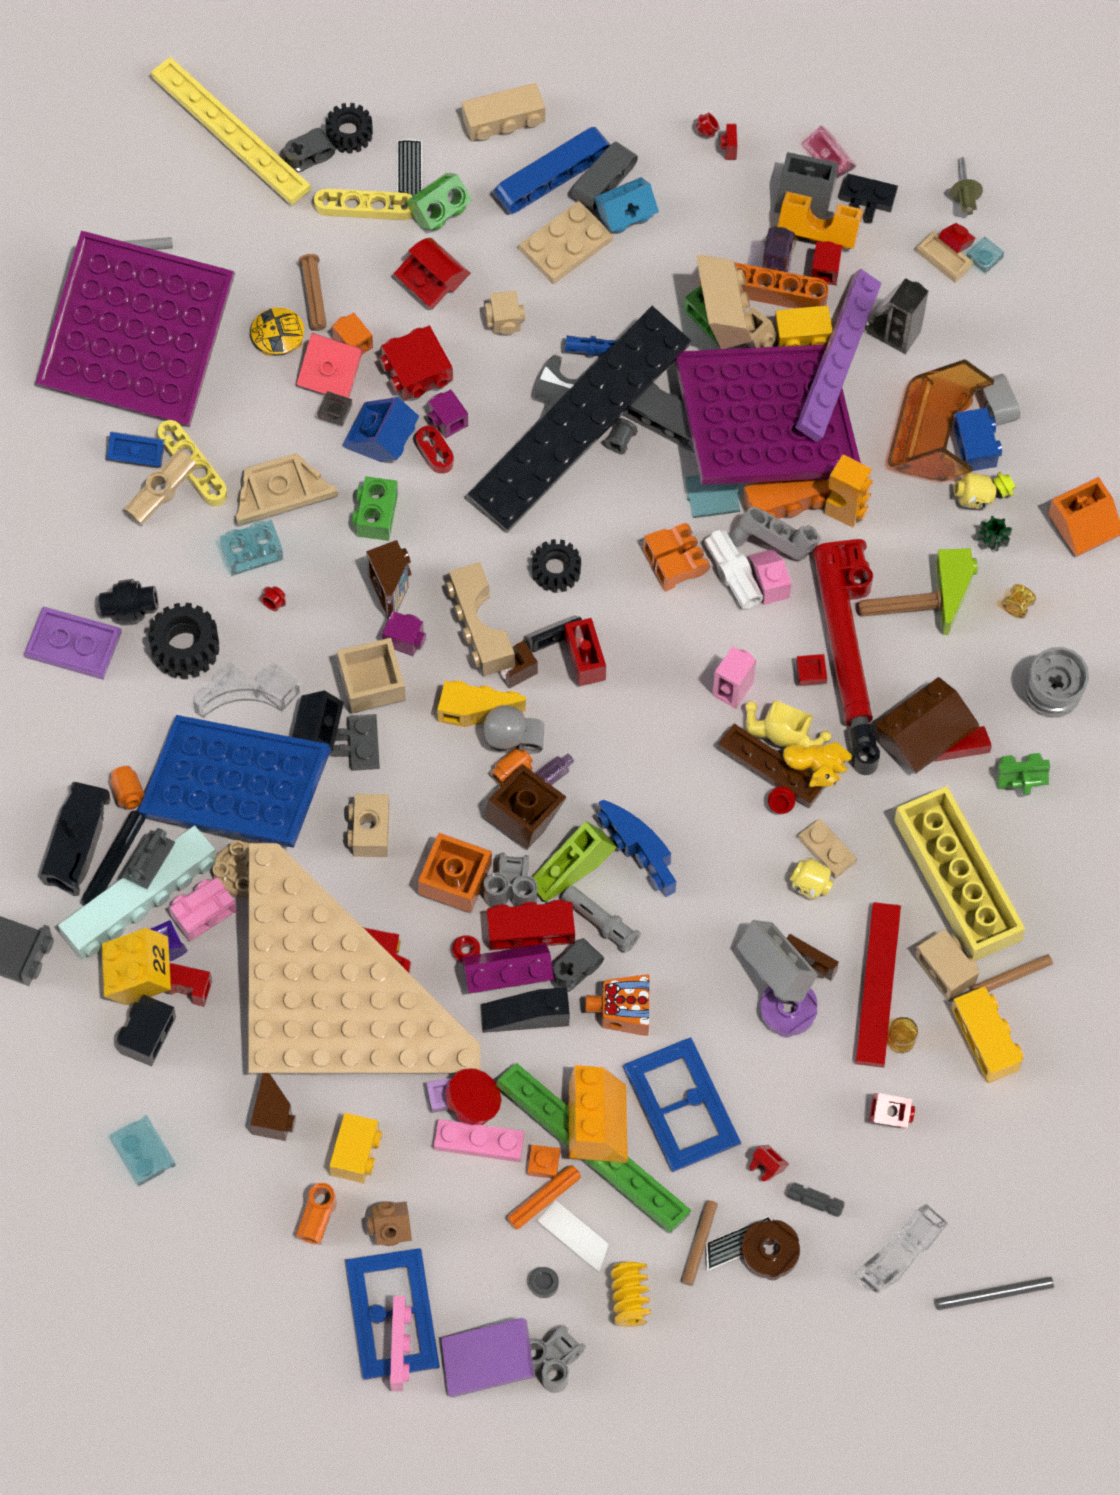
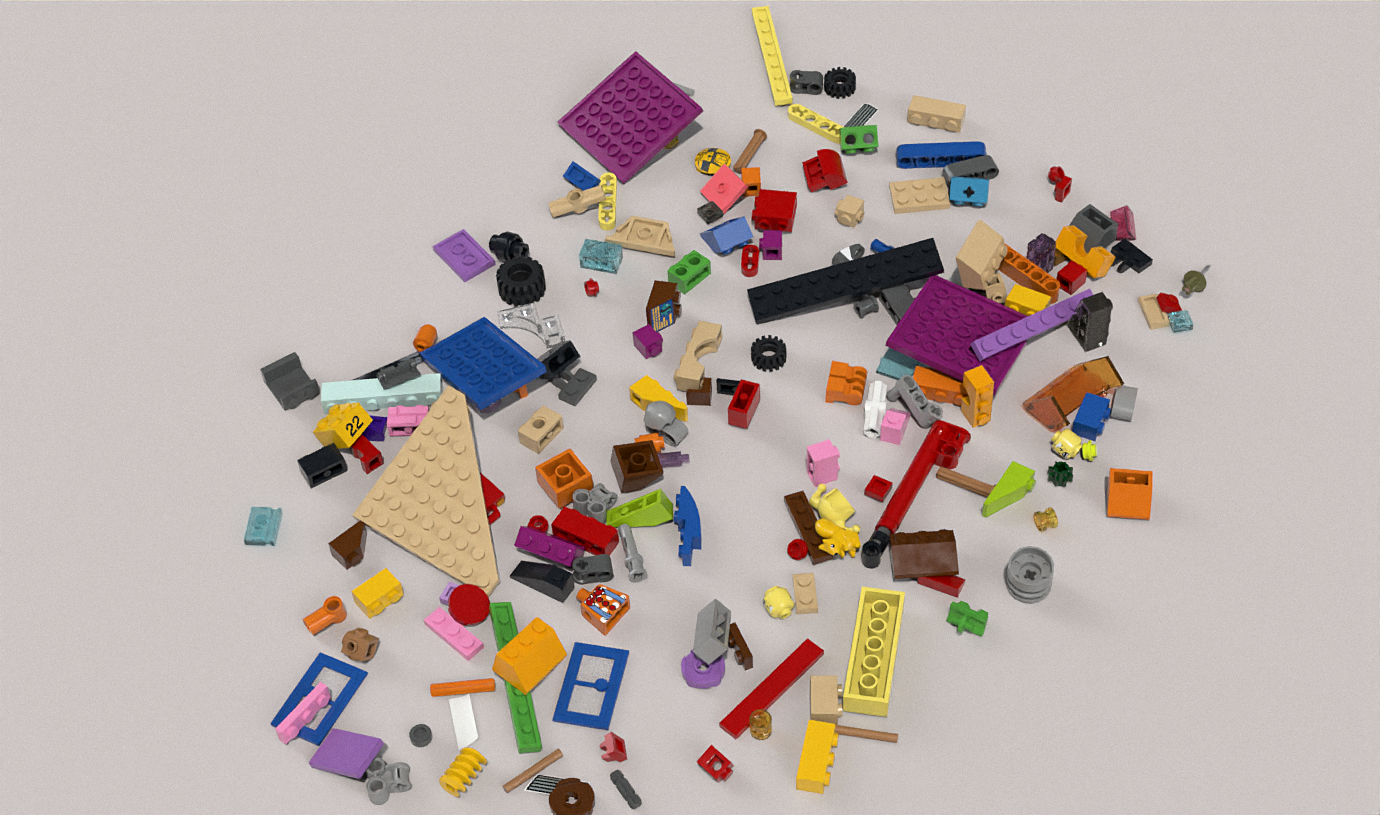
camera: 40 degrees right, 15 degrees down
(75, 838) = (374, 347): black piece -> none
(371, 675) = (608, 351): tan piece -> none
(543, 1161) = (480, 667): orange plate -> none

